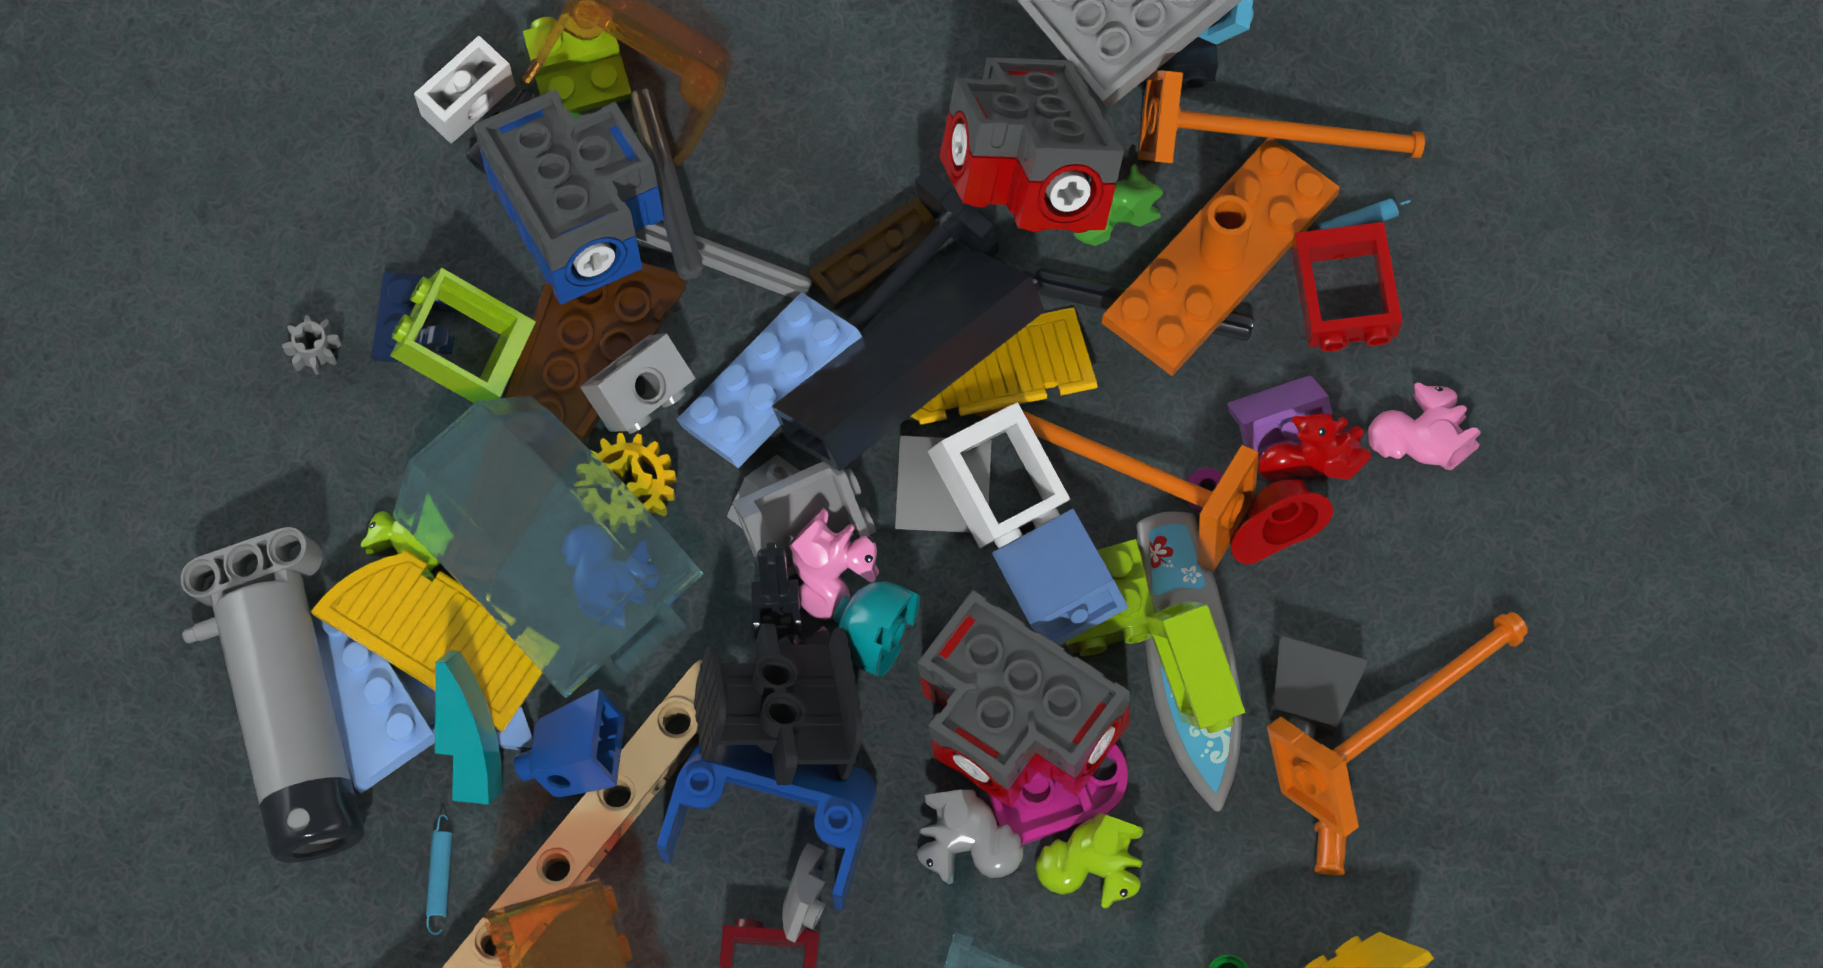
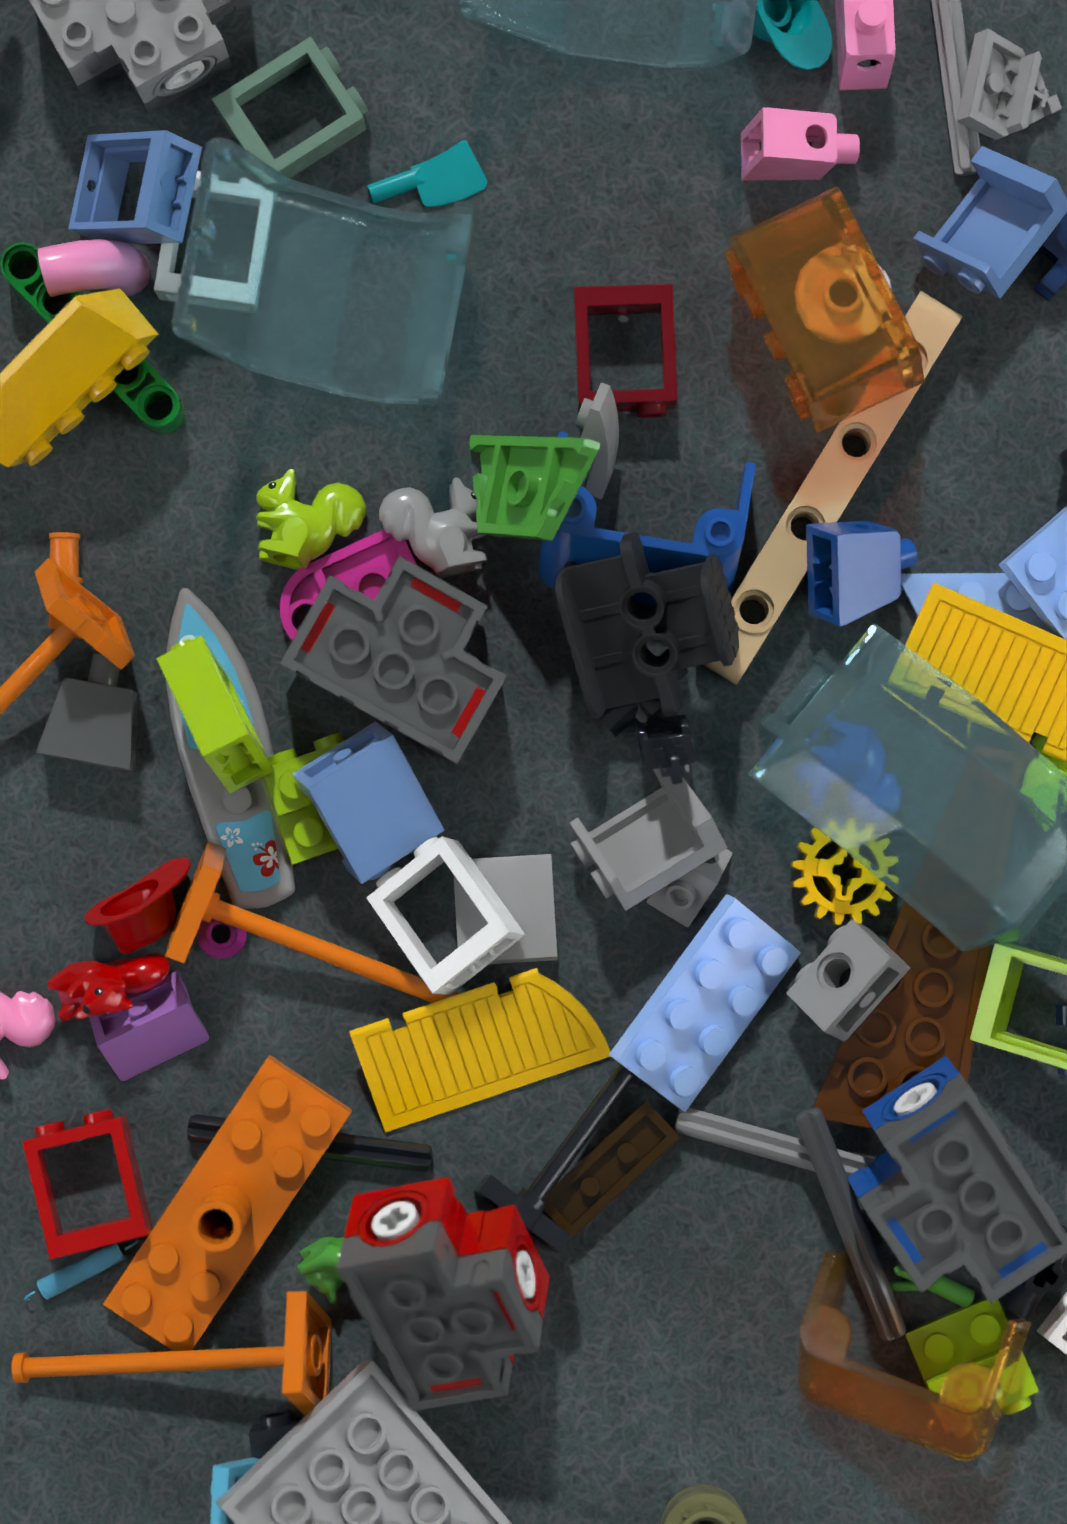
camera: 170 degrees right, 15 degrees up
(439, 874) = (975, 433): medium azure piece -> none
(466, 732) = (971, 569): teal slope -> none
(821, 558) = (621, 802): bright pink animal -> none
(876, 623) = (559, 736): teal cylinder -> none
(878, 850) = (528, 483): none -> bright green wing
(908, 359) = (554, 1034): black brick -> none

